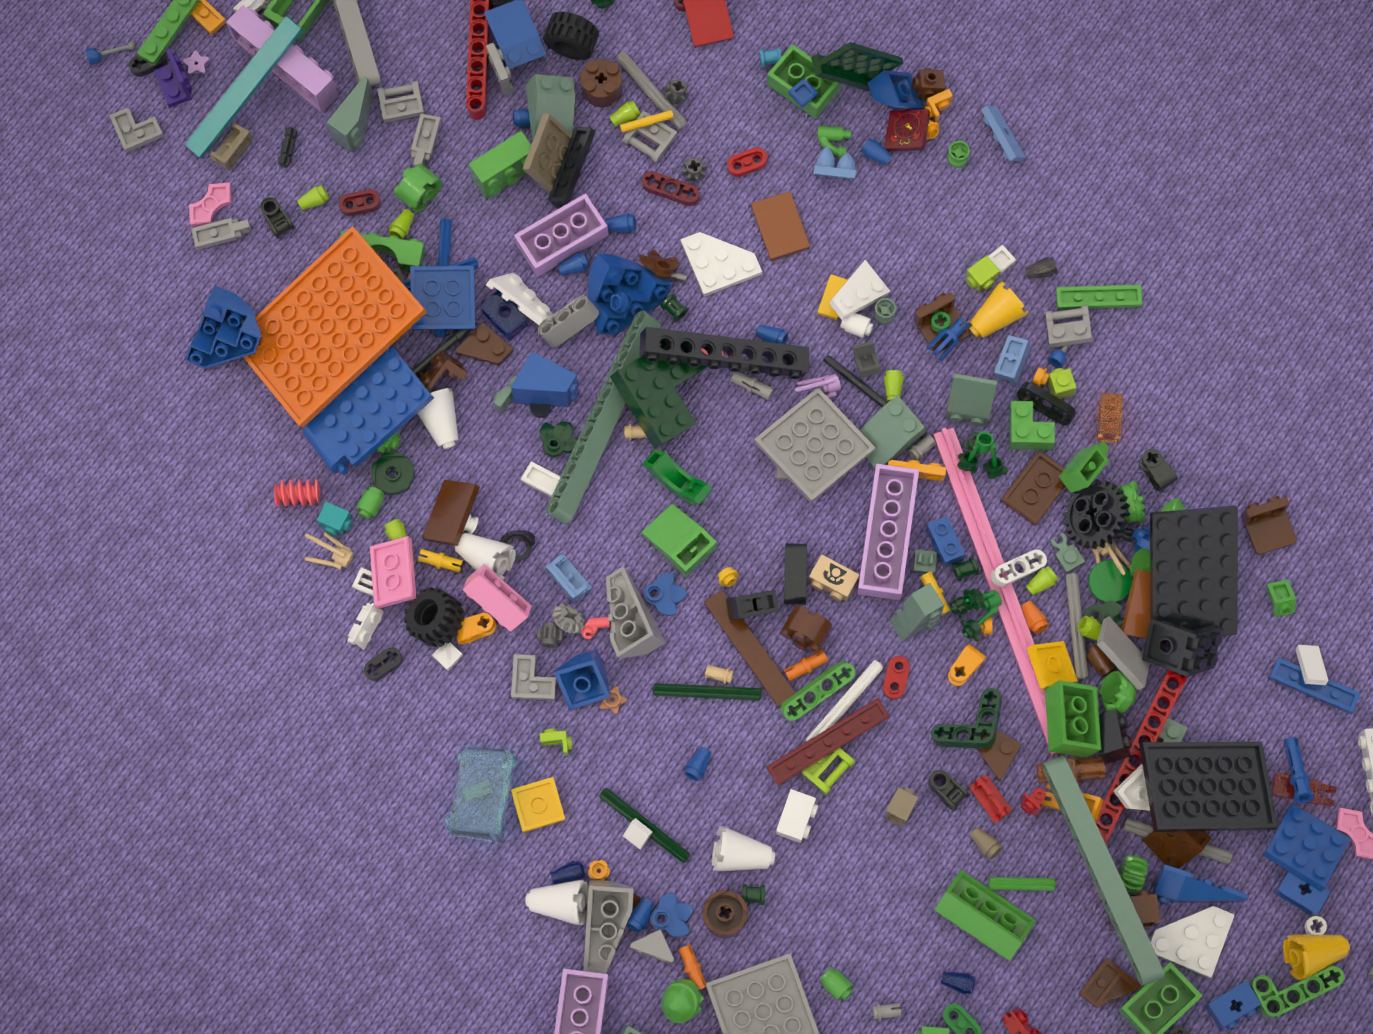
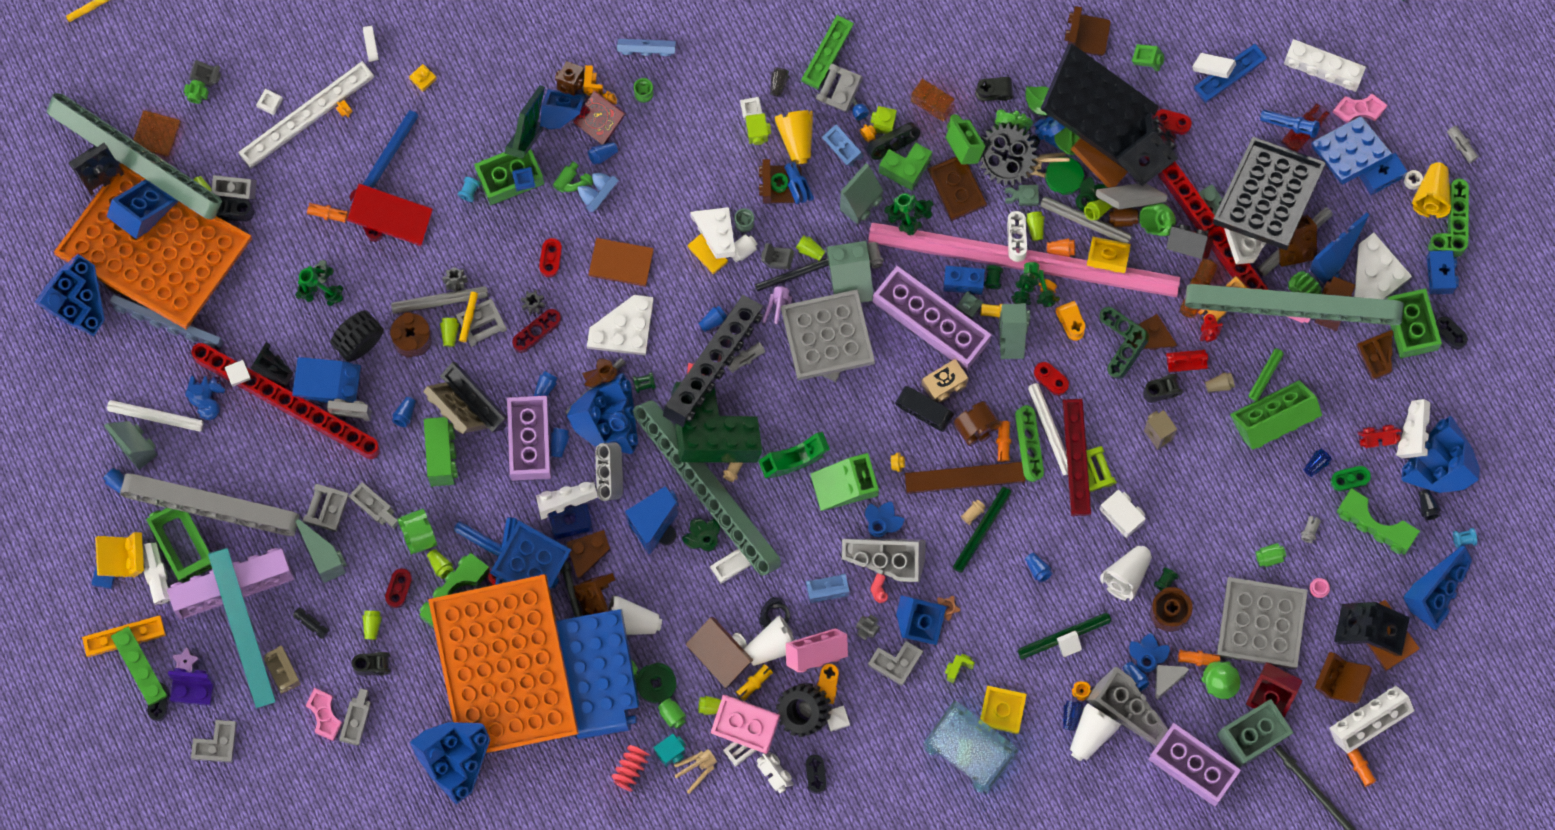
camera: 65 degrees left, 0 degrees up
(94, 55) = (124, 744): hinge -> none
(504, 397) = (642, 560): sand green plate -> none
(550, 96) = (404, 385): sand green slope -> none
(572, 623) = (868, 602): light grey gear -> none
(752, 604) = (933, 454): black brick -> none
(931, 472) = (899, 258): light orange hinge -> none
(1072, 719) = (1162, 262): bright green brick -> none
(1229, 655) = (1172, 121): none -> red plate

